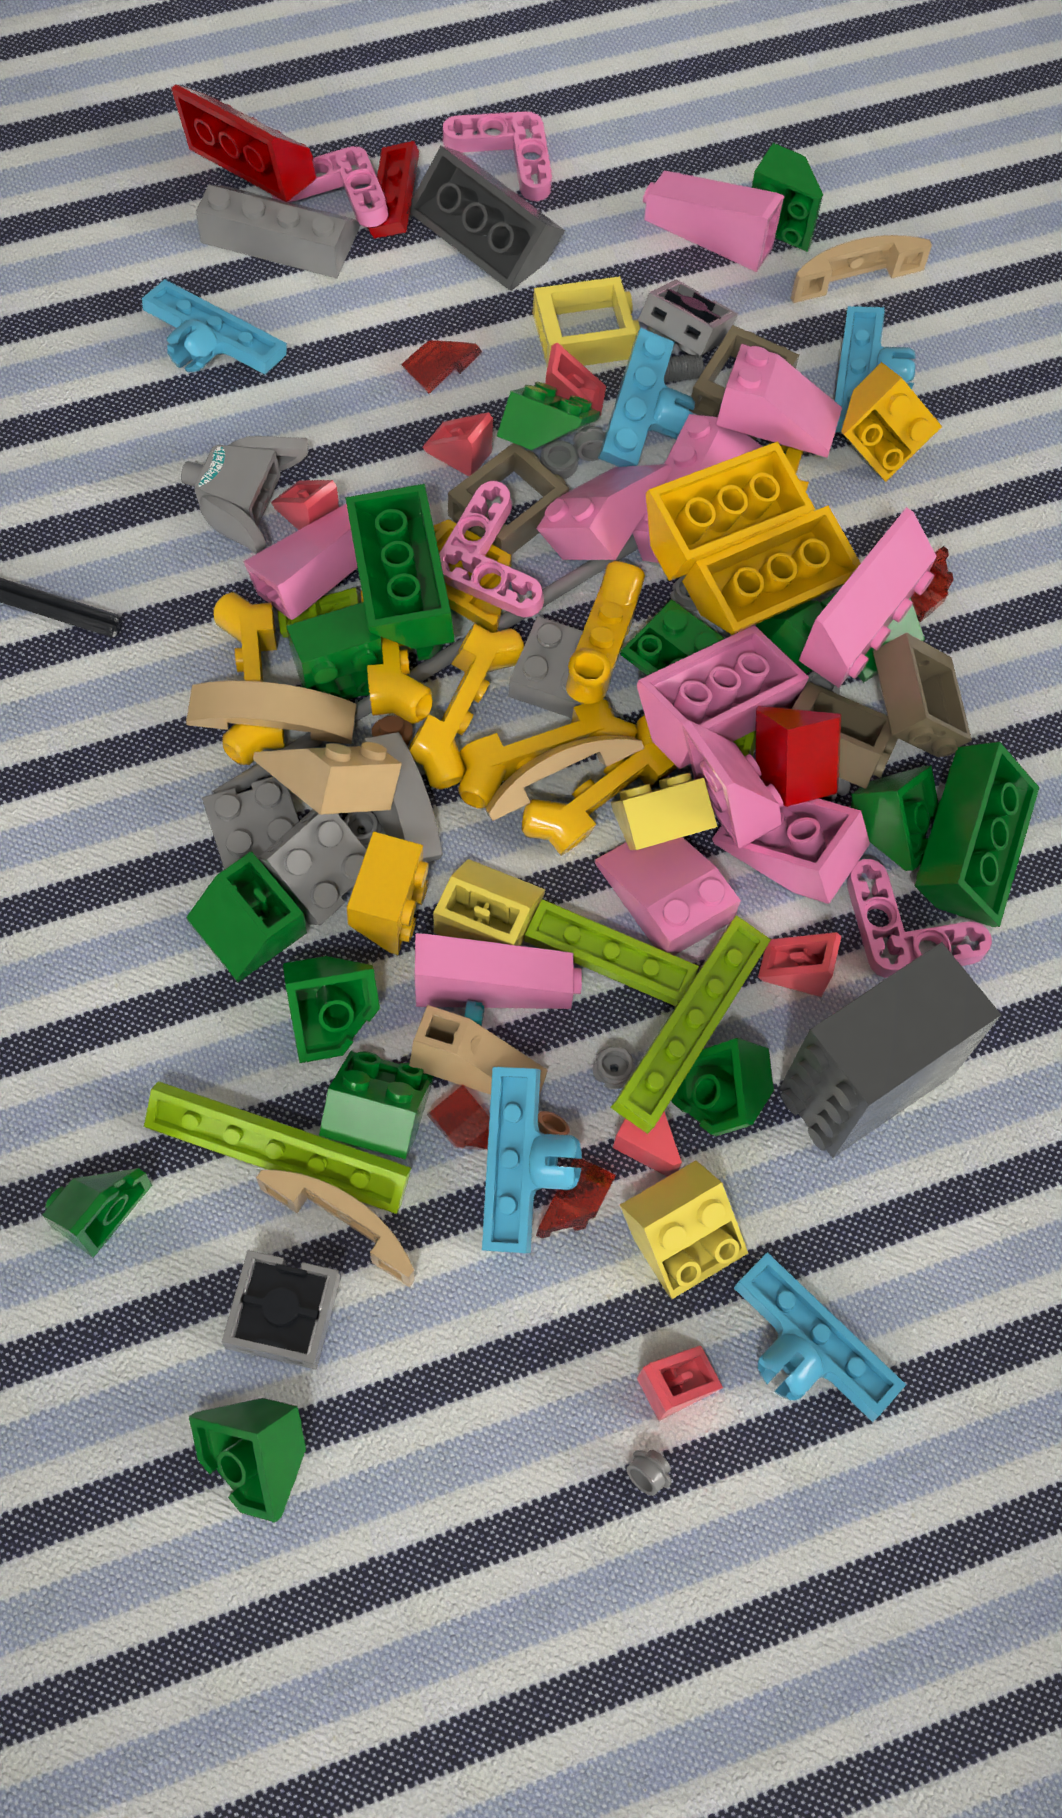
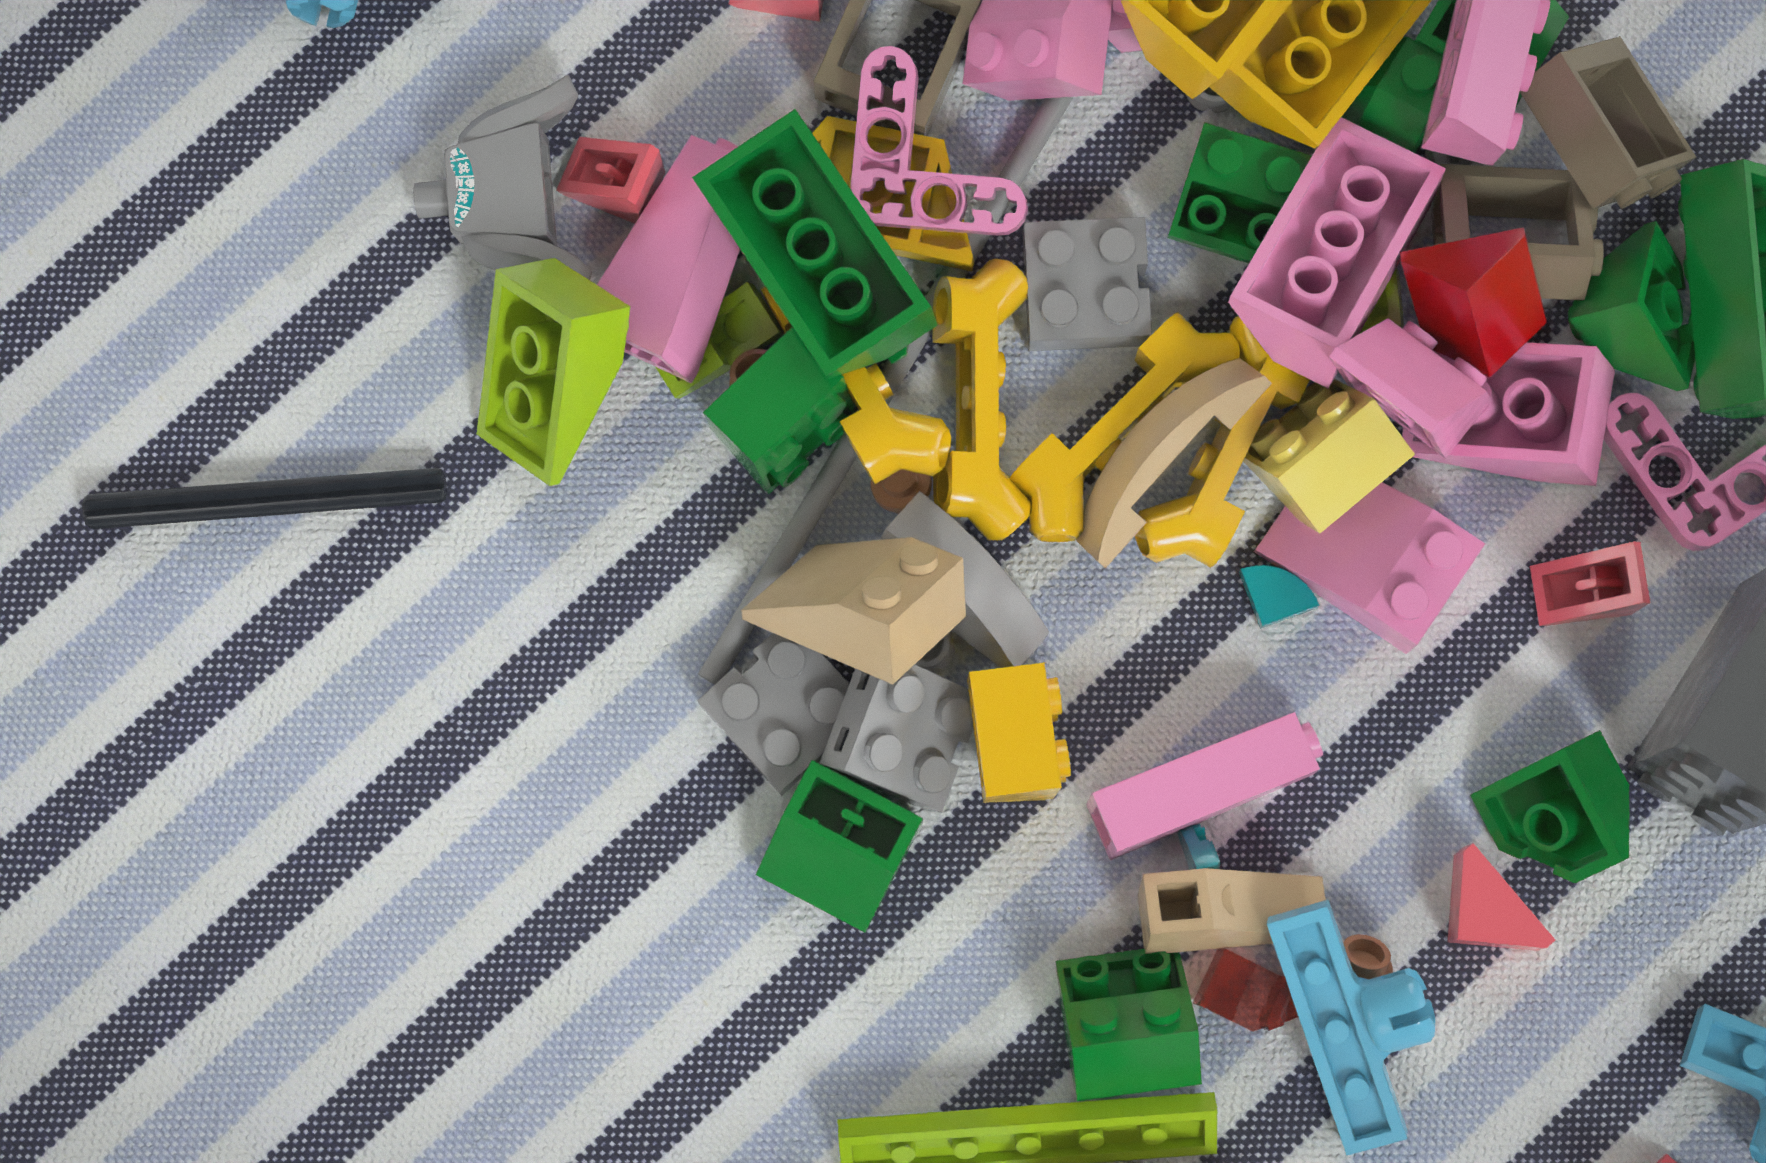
camera: 15 degrees left, 15 degrees up
(211, 572) = (548, 363): none -> lime slope
(255, 629) = (720, 550): yellow plate -> none
(272, 706) = (728, 531): tan slope -> none
(329, 1004) = (1002, 915): green slope -> none
(486, 905) = (1152, 688): light yellow slope -> none
(579, 1204) = (1452, 1040): clear red slope -> none
(597, 890) = (1276, 594): none -> teal tile
(604, 633) = (1135, 216): yellow plate -> none
(609, 1057) = (1422, 830): light grey plate -> none
(611, 953) = (1337, 680): lime plate -> none
(685, 1228) = (1588, 1016): light yellow slope -> none
(690, 1025) = (1490, 743): lime plate -> none

